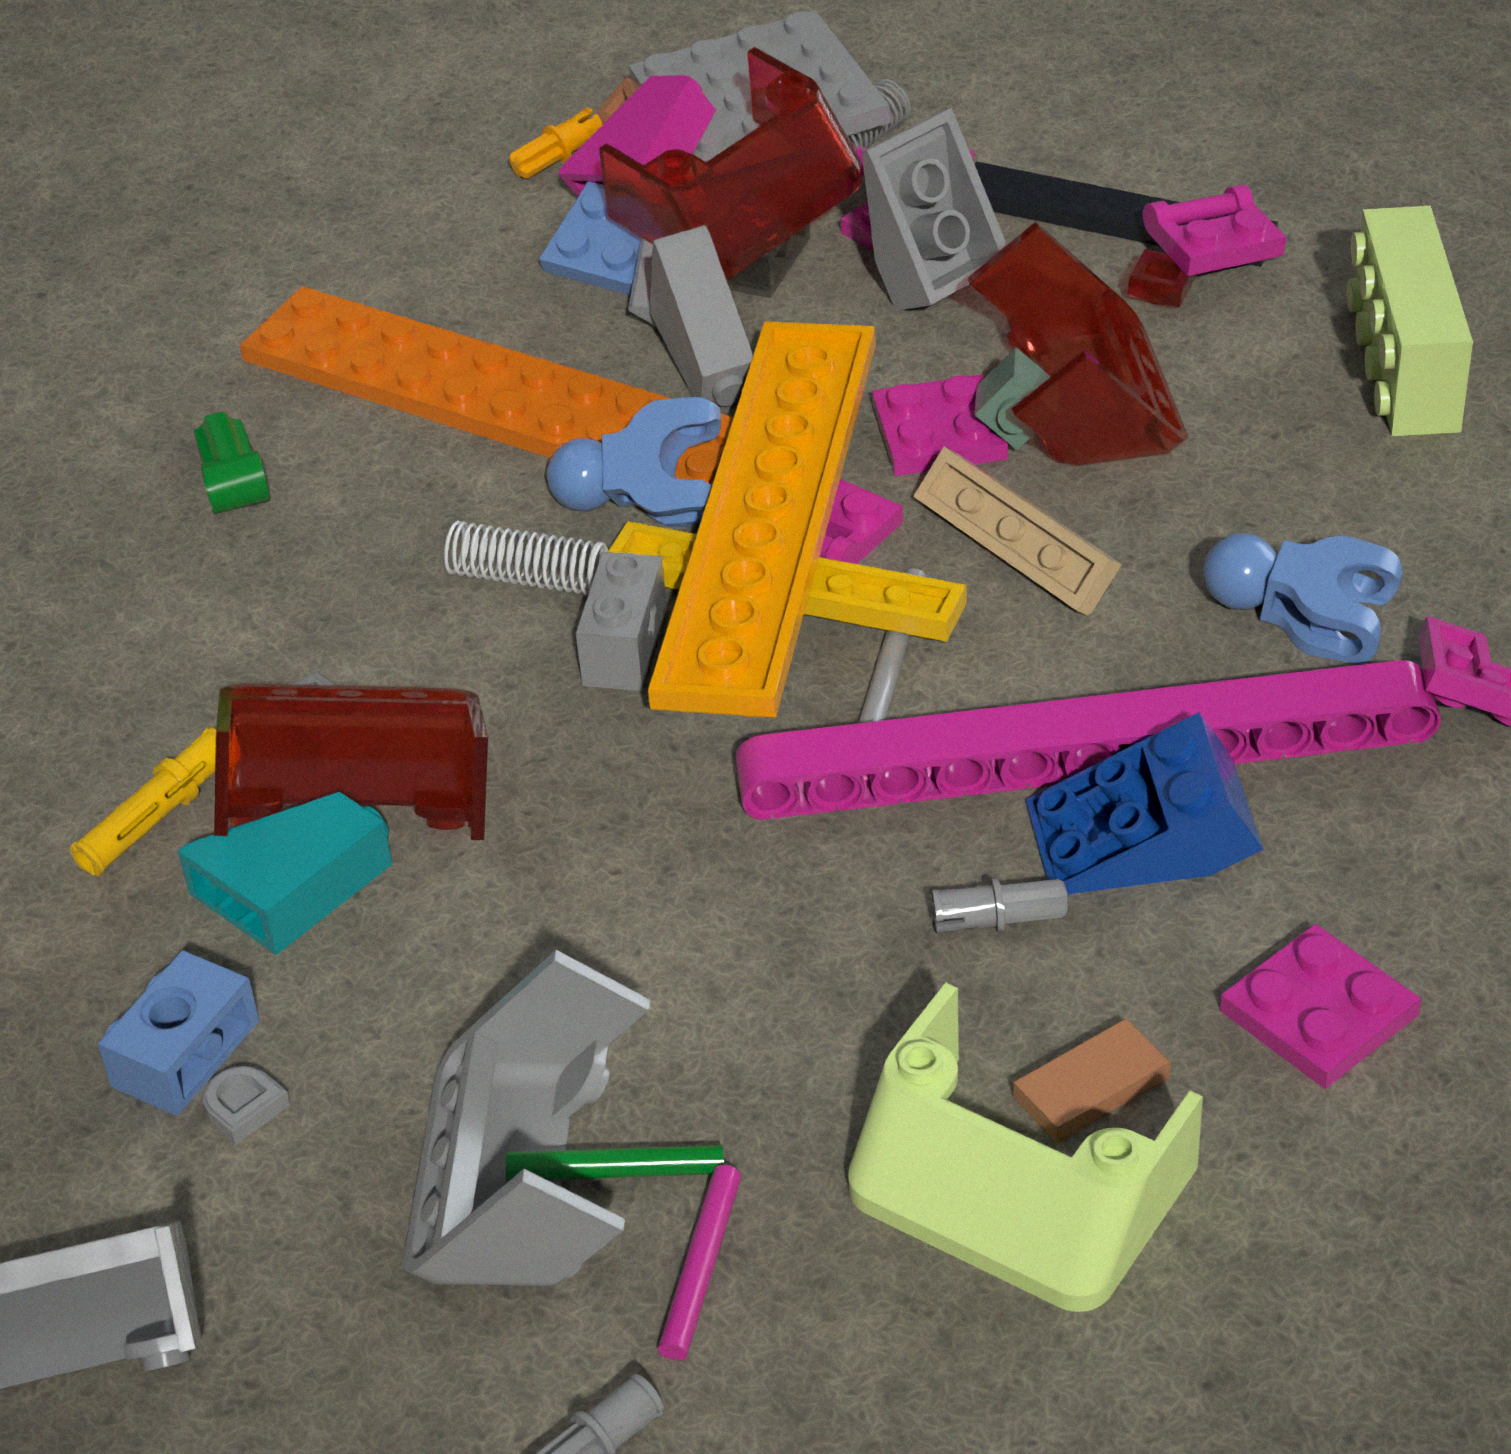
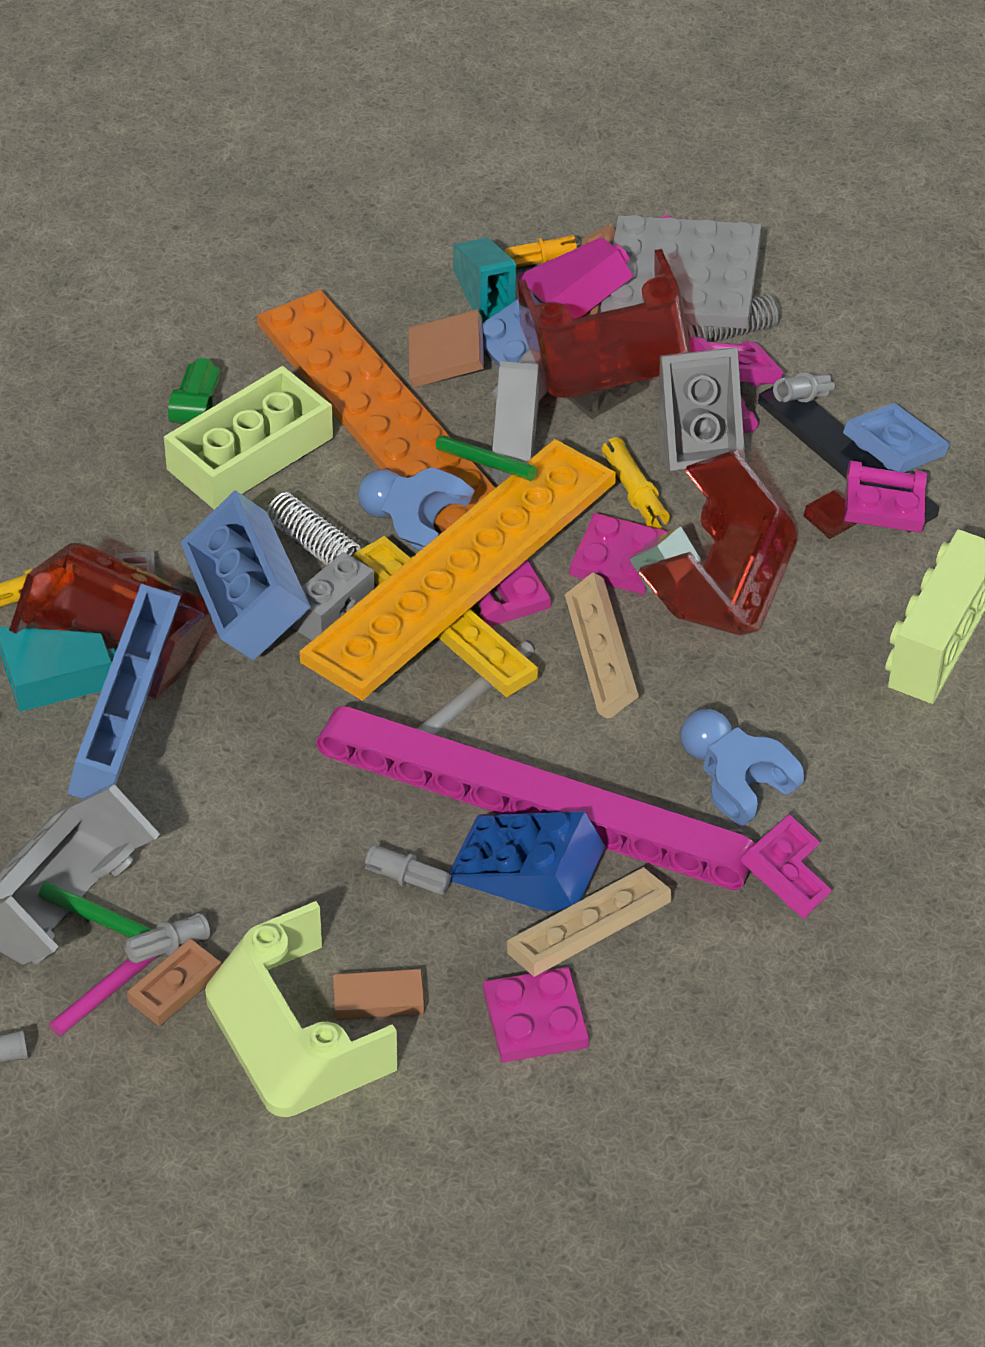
camera: 25 degrees right, 5 degrees up
(350, 480) = (248, 436): none -> yellowish green brick
(453, 844) = (124, 692): none -> medium blue brick
(495, 632) = (244, 575): none -> medium blue brick
(516, 188) = (485, 275): none -> teal slope
(526, 286) = (446, 348): none -> nougat tile
(696, 374) = (486, 458): none -> green bar
(747, 1143) = (166, 938): none -> light grey axle
(800, 1200) = (173, 982): none -> nougat plate
(910, 346) = (641, 493): none -> yellow pin
(1011, 157) = (803, 387): none -> light grey axle
(1165, 169) = (896, 438): none -> medium blue plate
(1295, 856) = (588, 921): none -> tan plate

